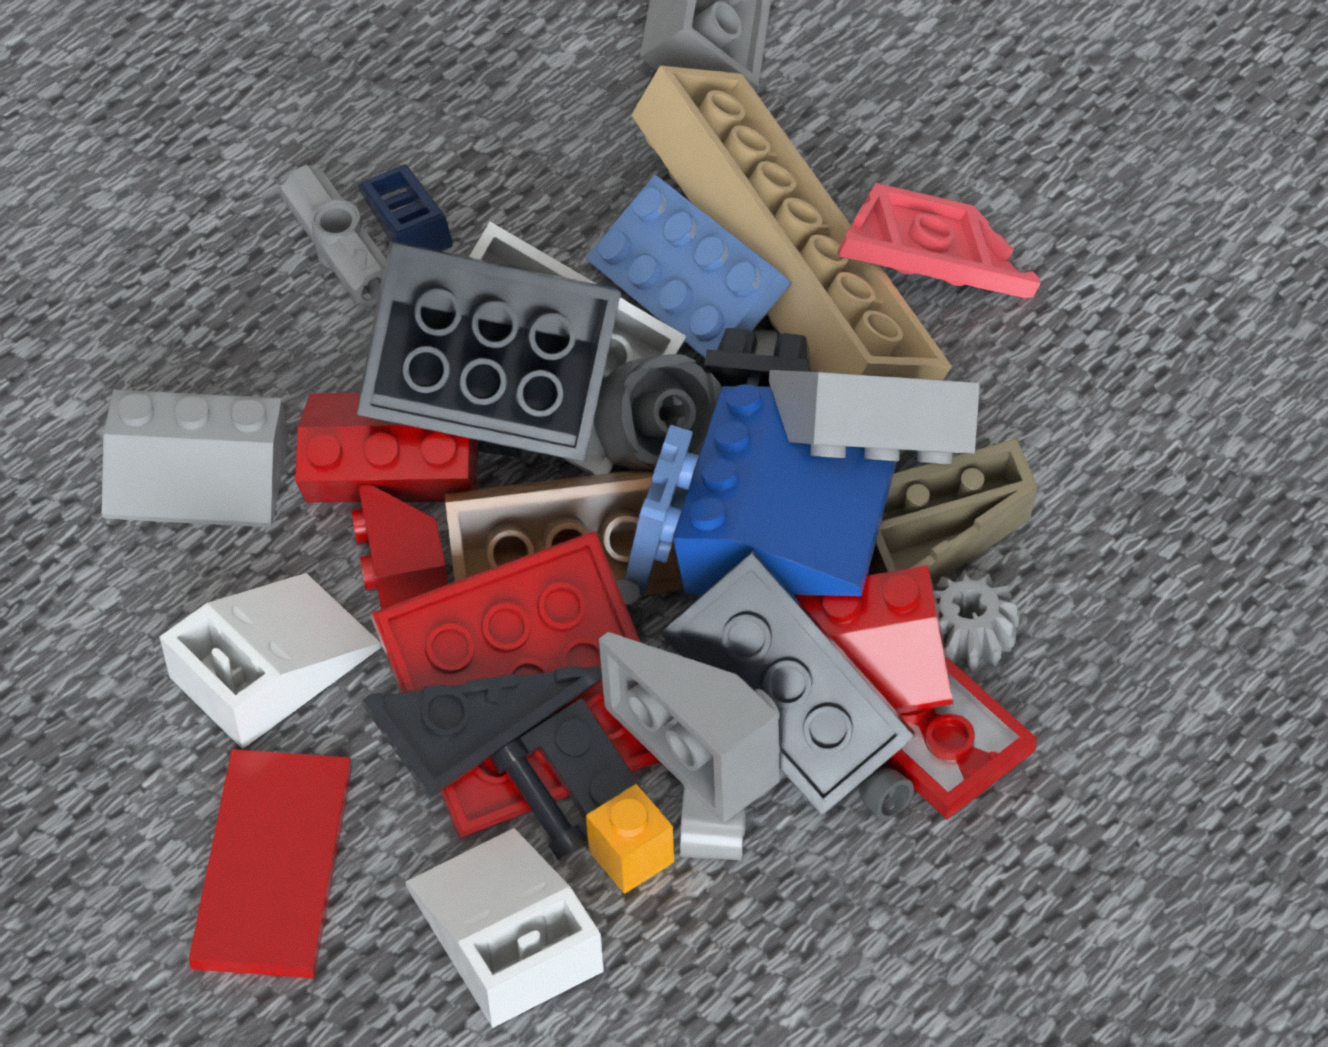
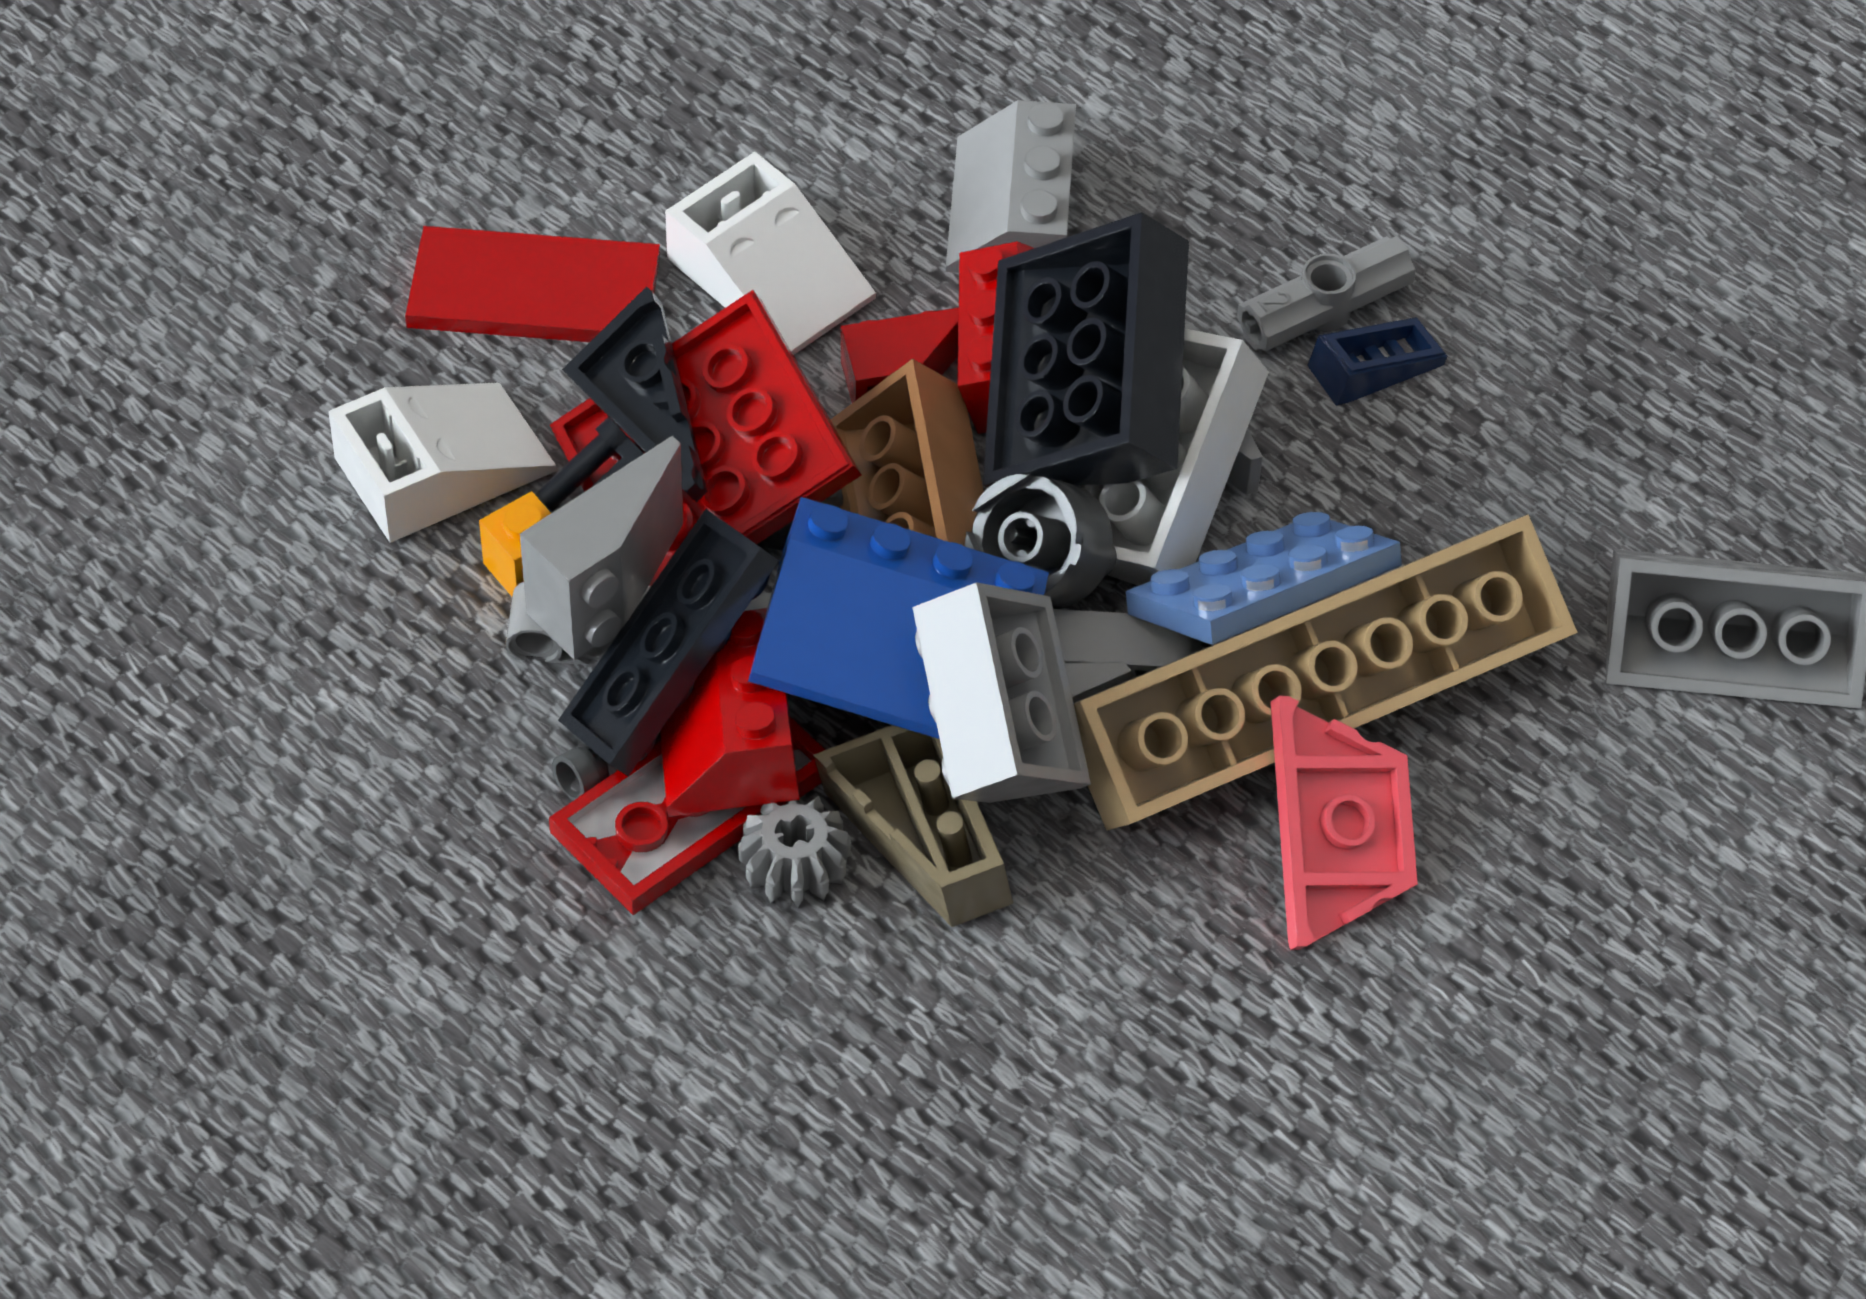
camera: 85 degrees right, 0 degrees up
(662, 506) = (864, 485): medium blue wing -> none
(738, 364) = (1088, 626): black hips -> none

